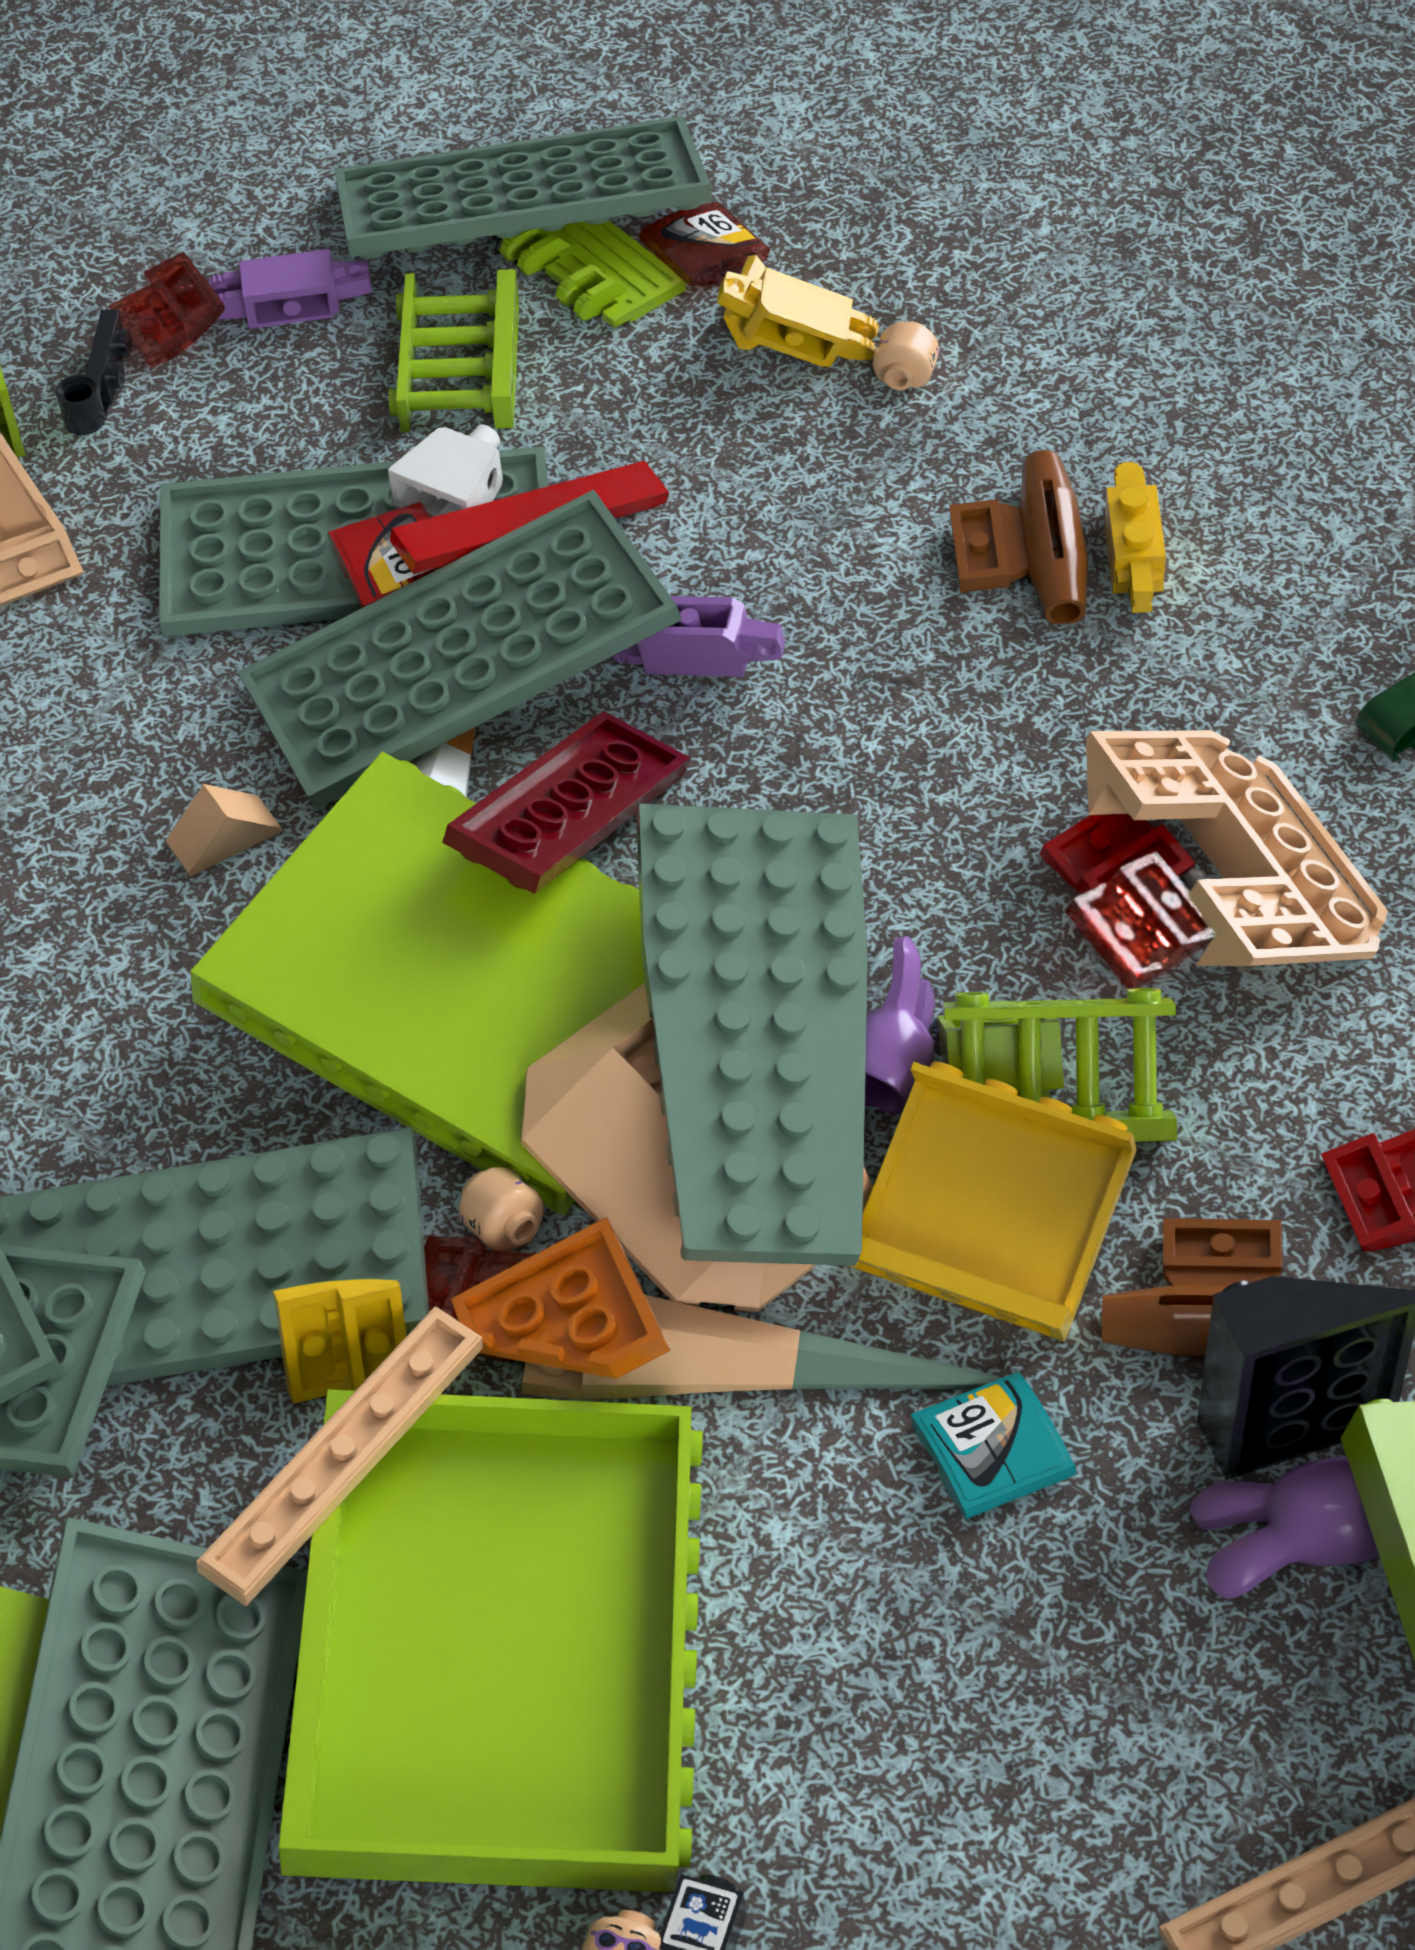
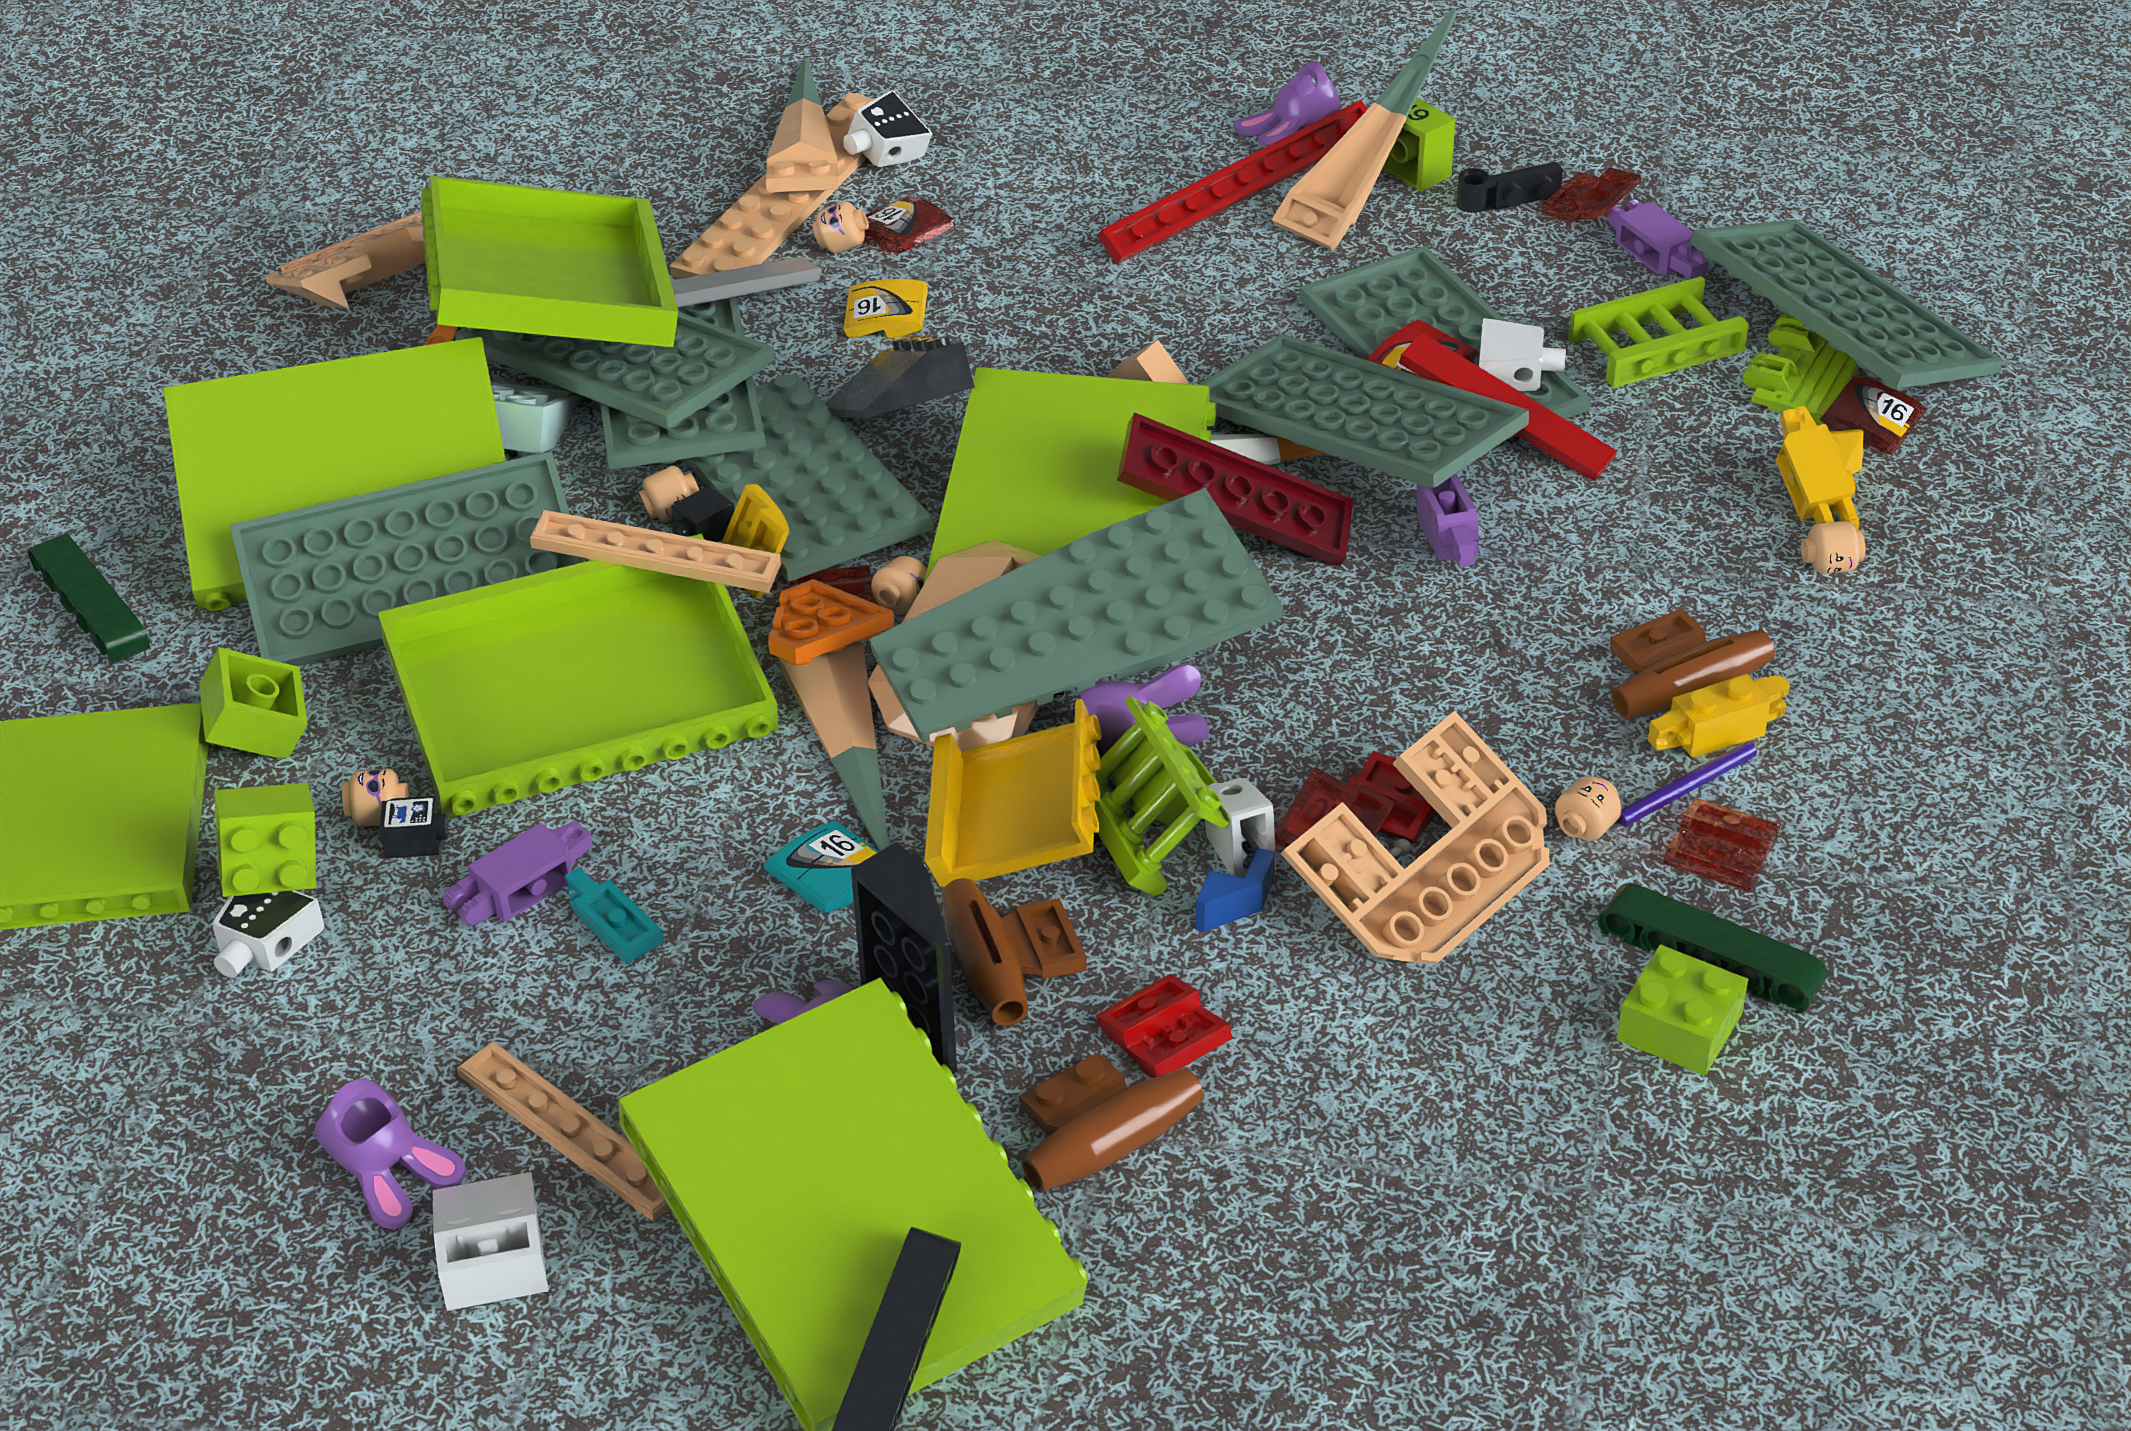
camera: 65 degrees right, 10 degrees down
(129, 1073) = (905, 376): none -> black slope
(150, 1424) = (664, 490): none -> light nougat head
(230, 1397) = (703, 513): none -> black brick
(857, 1808) = (518, 873): none -> medium lavender hinge
(980, 1720) = (612, 916): none -> teal hinge
(1112, 978) = (1246, 811): none -> white torso
(1204, 611) = (1687, 783): none -> dark purple bar
(1223, 697) = (1588, 806): none -> light nougat head
(1228, 1059) = (1230, 897): none -> blue slope
(1310, 616) = (1721, 844): none -> clear red slope

